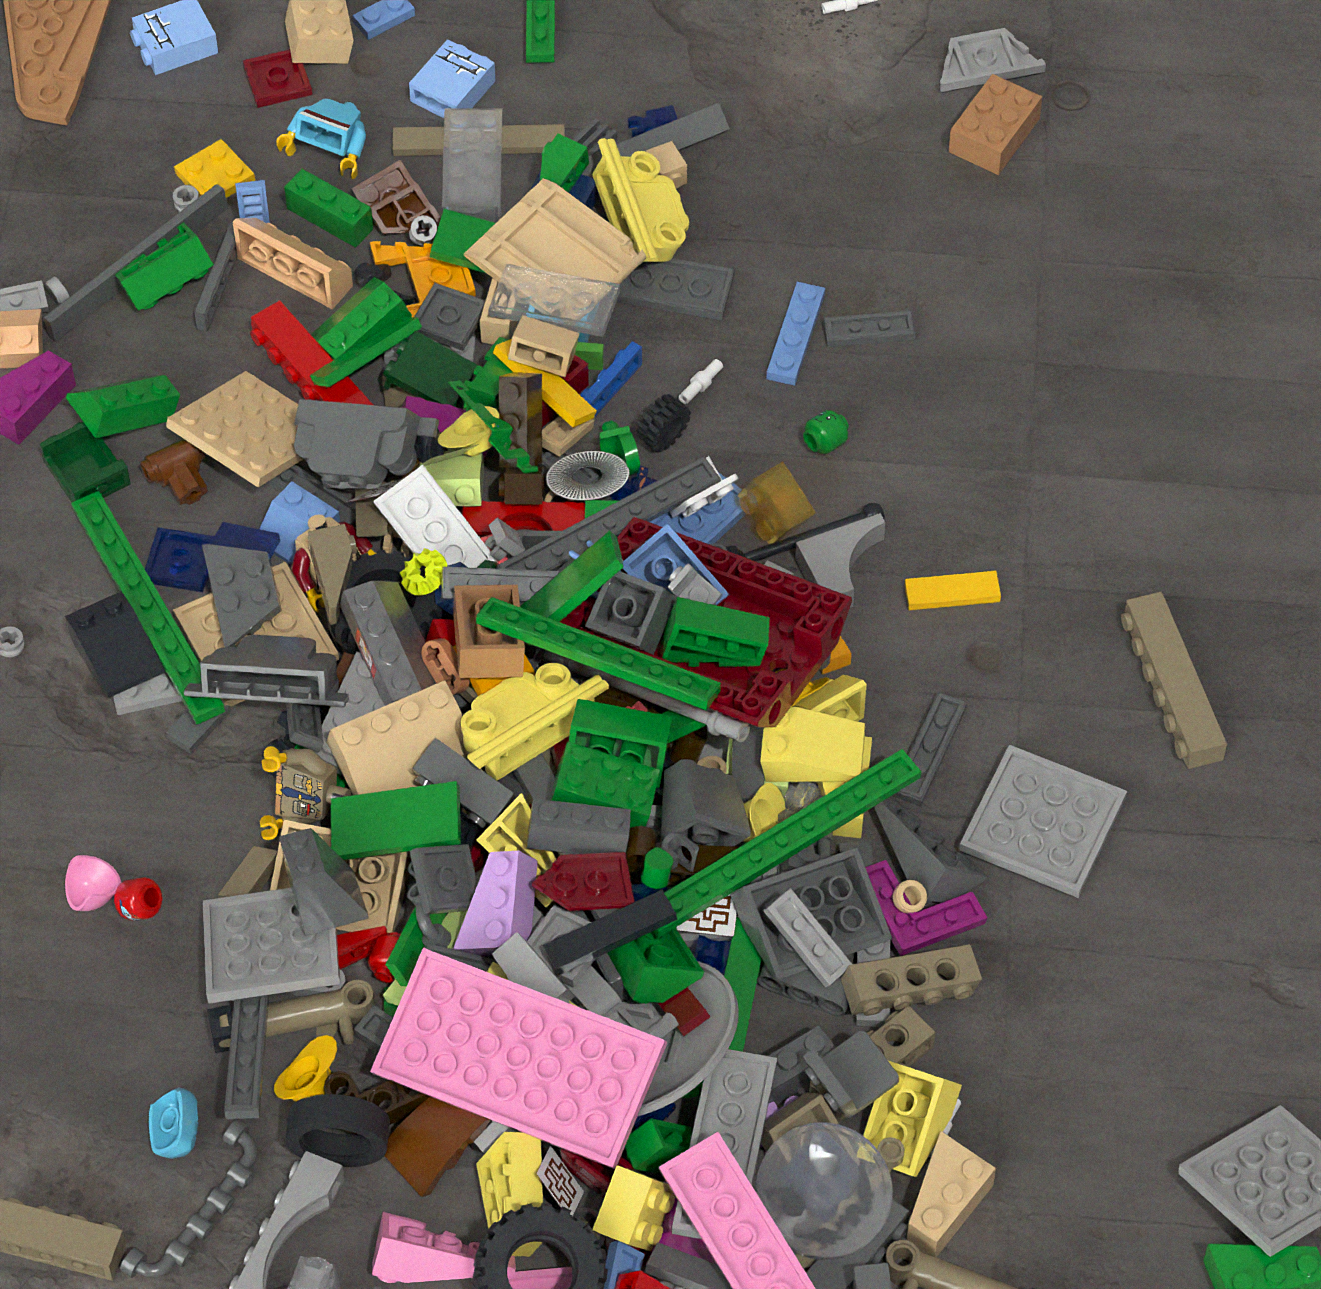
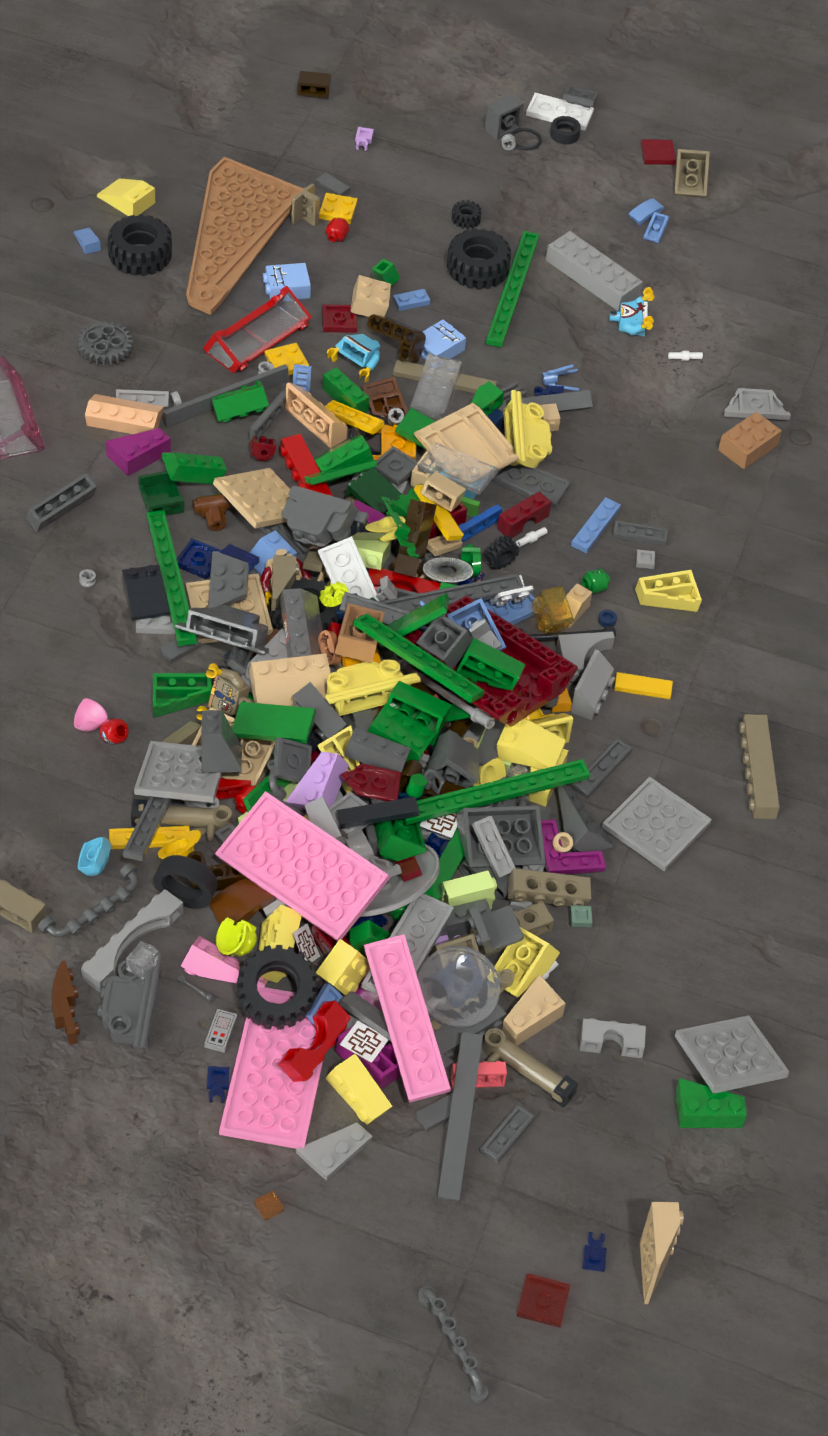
camera: 10 degrees right, 5 degrees down
(154, 136) = (258, 331): none -> clear windscreen
(211, 1076) = (163, 837): none -> yellow tile
(222, 802) = (179, 691): none -> green wedge
(226, 341) = (261, 449): none -> dark red hand
(357, 247) = (355, 417): none -> yellow tile
(407, 87) = (411, 339): none -> dark brown beam
(443, 1202) = (237, 938): none -> neon yellow helmet
(649, 95) = (551, 376): none -> medium blue plant
(665, 360) = (513, 520): none -> dark red arch
(788, 1020) = (469, 889): none -> yellowish green brick
(809, 472) = (579, 601): none -> tan slope
(861, 490) = (607, 618): none -> dark blue tile
(877, 616) = (593, 687): none -> light grey slope
(891, 371) = (645, 559): none -> light grey tile
(948, 419) = (670, 591): none -> light yellow wedge
(973, 1011) = (581, 916): none -> sand green plate
(1108, 1193) = (629, 1036): none -> light grey arch

